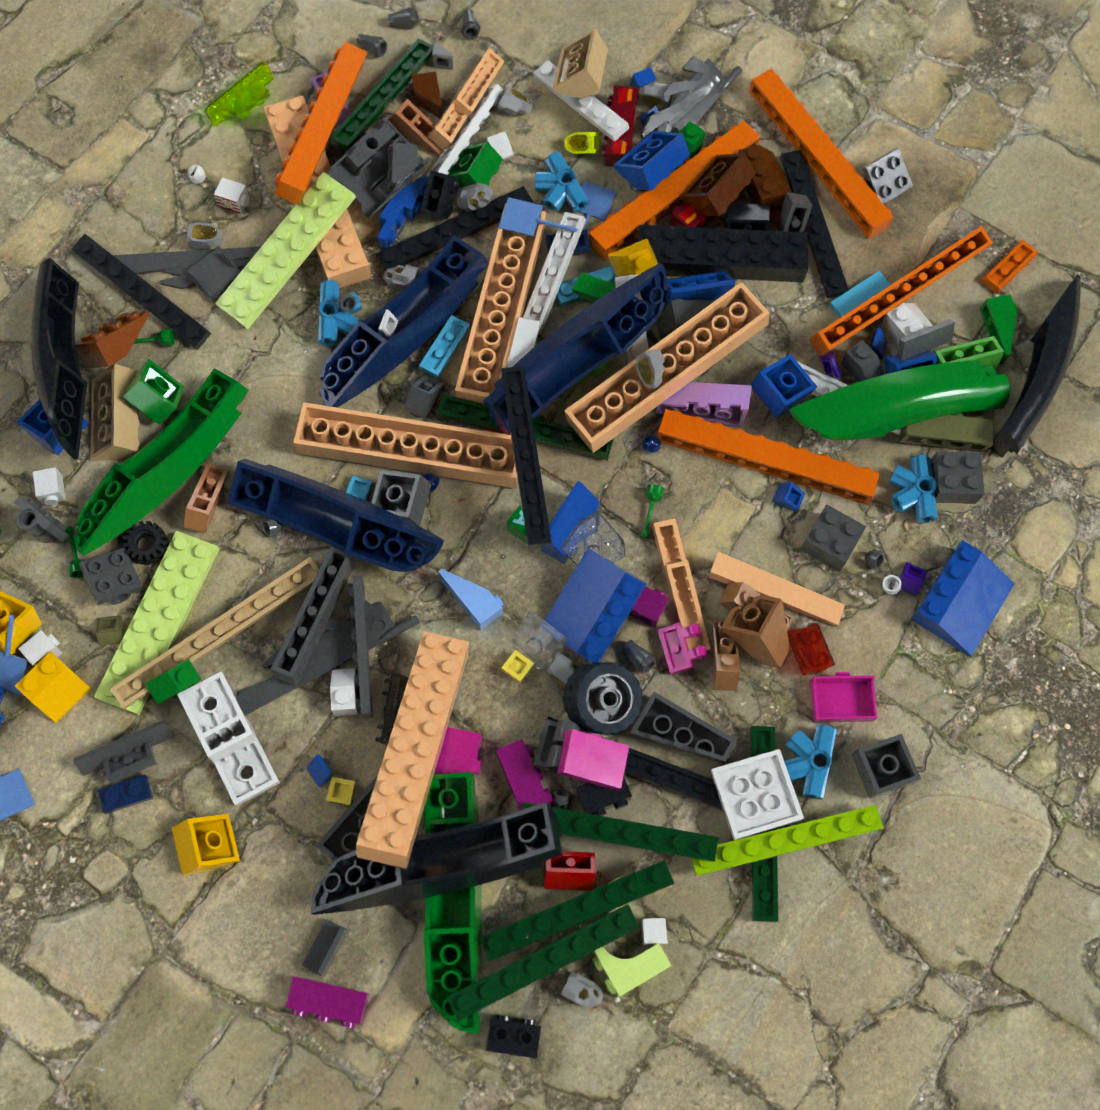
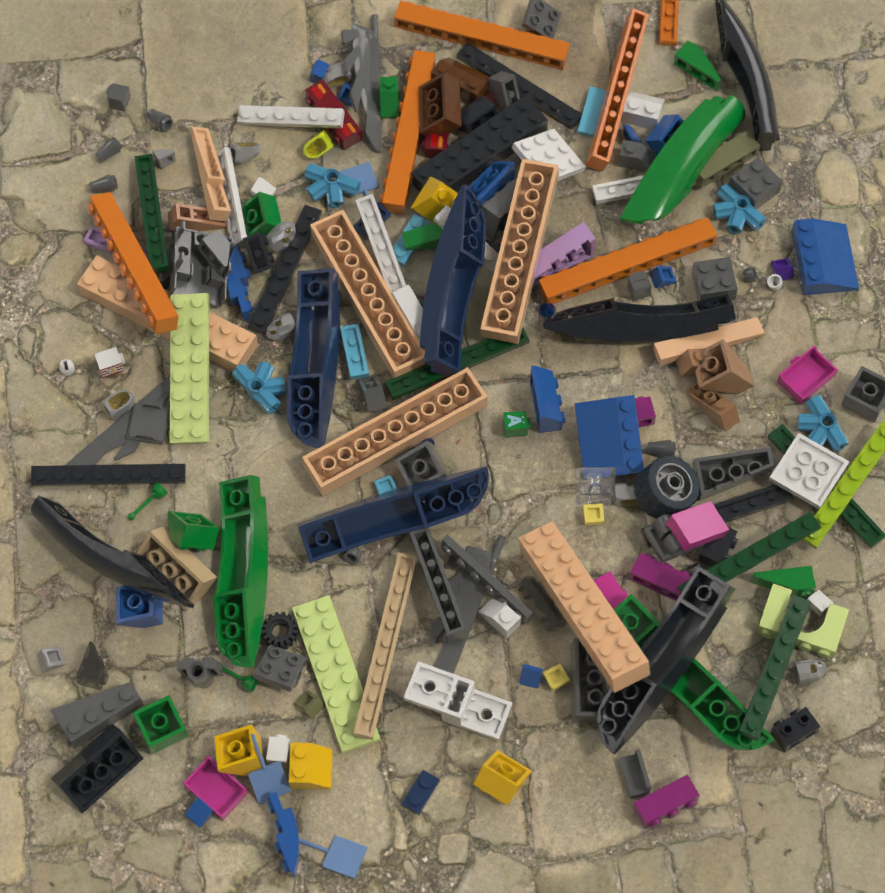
camera: 35 degrees left, 5 degrees down
(49, 486) = (177, 647): white brick -> none
(112, 340) = (128, 518): dark orange slope -> none
(126, 754) = (399, 768): dark grey bracket -> none
(173, 681) = (391, 693): green slope -> none
(205, 498) = (292, 571): nougat slope -> none
(242, 96) = (49, 290): clear neon green bracket -> none
(346, 302) = (266, 370): dark grey hinge -> none
(387, 325) = (306, 364): white slope -> none
(427, 92) = (178, 189): reddish brown slope -> none
(474, 599) = (528, 495): light blue slope -> none
(524, 216) = (332, 225): medium blue piece -> none
(526, 456) = (487, 374): black plate -> none
(570, 871) = (741, 606): red brick -> none
(576, 910) = (766, 624): dark green plate -> none
(581, 67) = (272, 93): tan slope -> none
(596, 534) = (569, 392): clear slope -> none
(650, 367) = (516, 257): light grey rock -> none
(651, 904) = (797, 579): none -> green slope
(653, 159) = (380, 121): blue slope -> none
(654, 494) = (580, 342): green hinge -> none
(676, 649) = (680, 424): dark pink plate -> none
(679, 579) = (646, 384): light nougat slope -> none
(726, 523) = (639, 322): none -> black slope
(756, 486) = (639, 285): none -> dark grey piece
(783, 385) = (598, 207): blue slope -> none
(786, 301) = (550, 149): none -> white plate
(810, 649) = (762, 359): clear red bracket -> none
(830, 365) = (615, 172): dark purple slope -> none
(925, 339) = (662, 110): dark grey tile -> none
(984, 350) = (703, 89): bright green brick -> none

